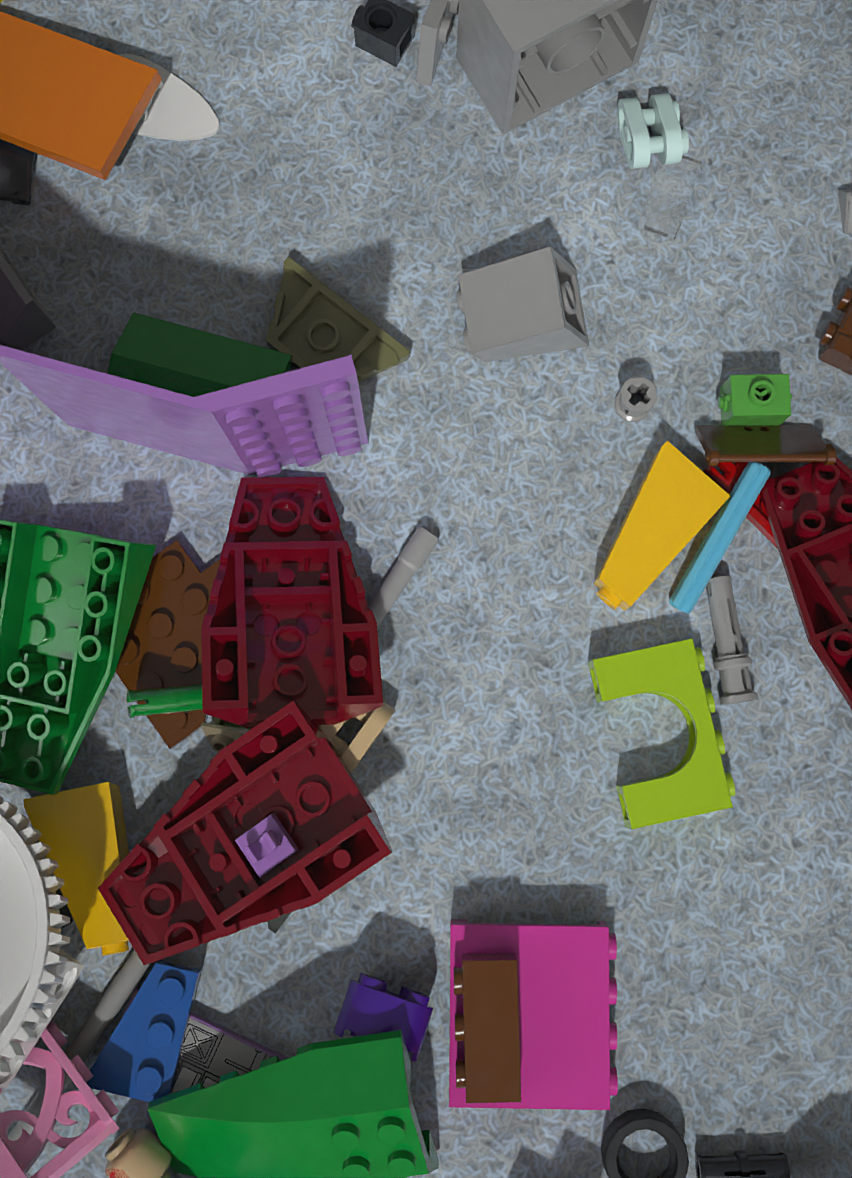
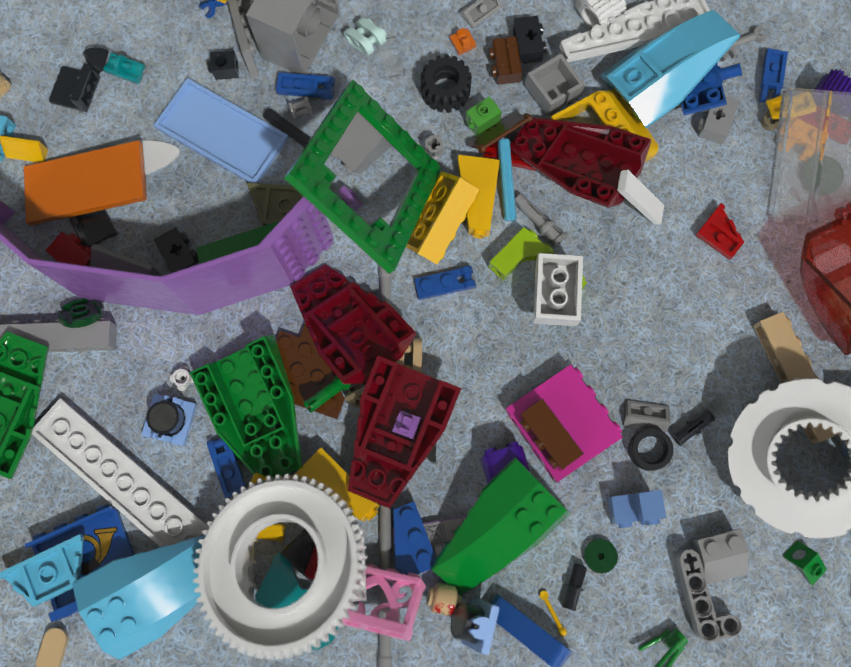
camera: 30 degrees left, 5 degrees down
(89, 282) = (172, 242): none -> black brick
(306, 141) = (221, 131): none -> light blue tile
(365, 334) = (312, 178): none -> green plate
(418, 208) = (286, 127): none -> black axle
(435, 394) = (350, 197): none -> medium lavender tile
(460, 185) = (299, 104): none -> light grey bush
(494, 151) = (305, 85): none -> blue plate
(496, 641) = (444, 283): none -> blue plate
(561, 529) = (442, 216): none -> yellow slope
(673, 791) = (558, 289): none -> white brick
(678, 1093) = (646, 415): none -> light grey slope
(748, 275) = (445, 98): none -> black tyre
(811, 245) = (462, 41): none -> orange tile

